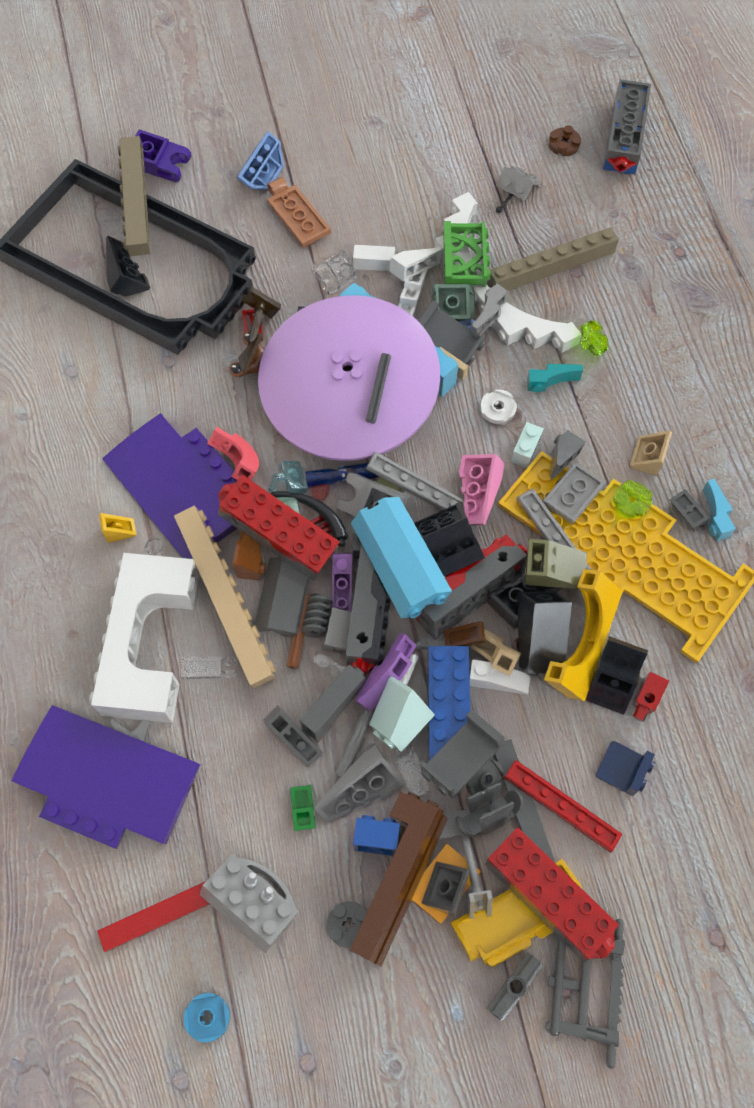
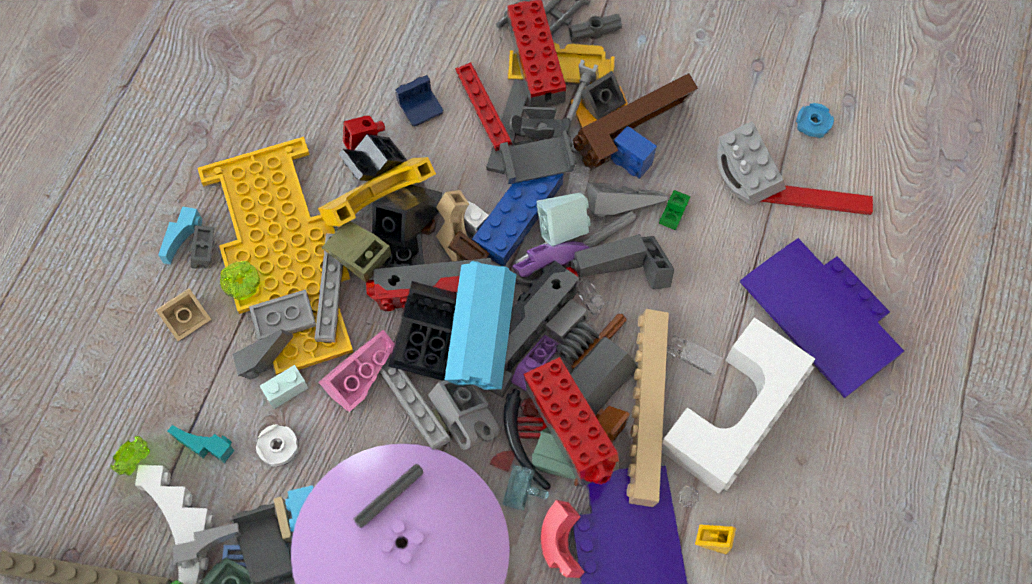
camera: 150 degrees left, 0 degrees up
(330, 476) = (486, 469): clear blue piece -> none
(338, 916) = (687, 112): dark grey plate -> none

